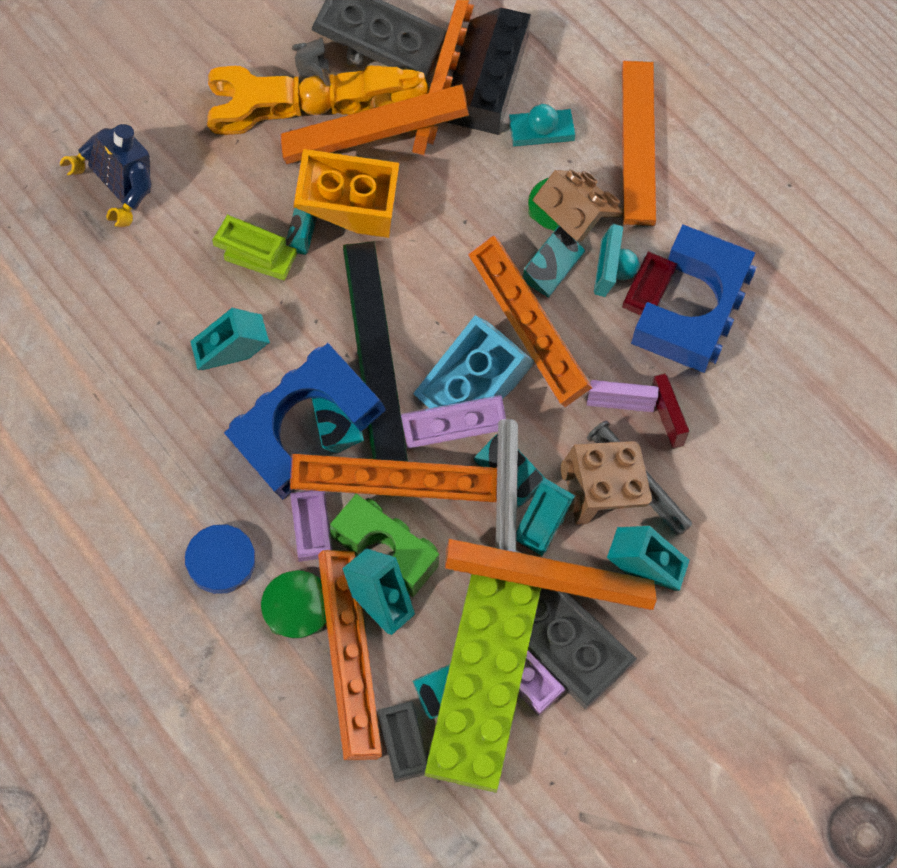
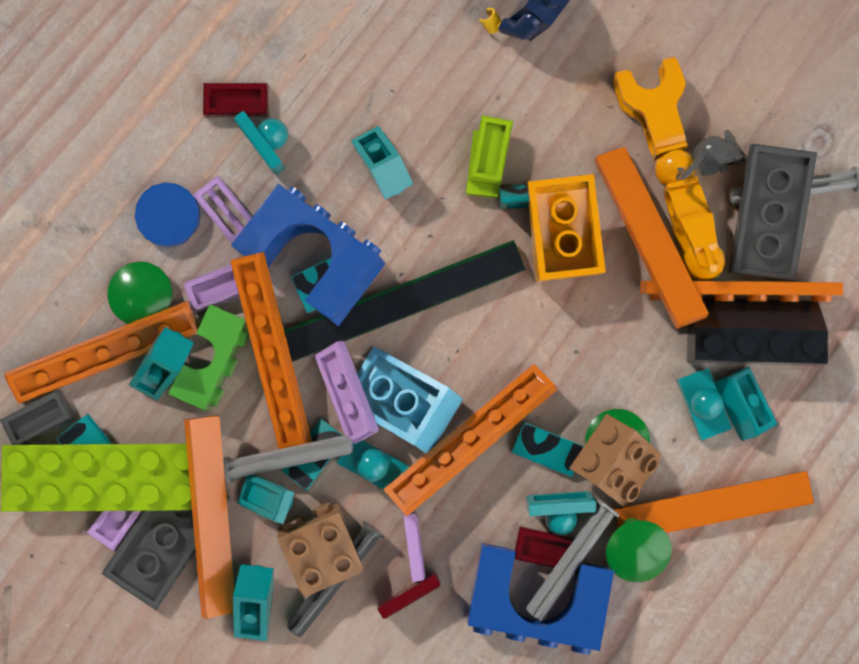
camera: 80 degrees right, 20 degrees up
(119, 467) = (233, 98): none -> dark red tile
(172, 444) = (268, 137): none -> teal tile
(236, 513) = (208, 188): none -> lavender tile
(536, 416) = (373, 464): none -> teal tile
(558, 93) = (745, 404): none -> teal slope
(665, 261) = (571, 560): none -> light grey axle
(666, 205) = (638, 550): none -> green dish

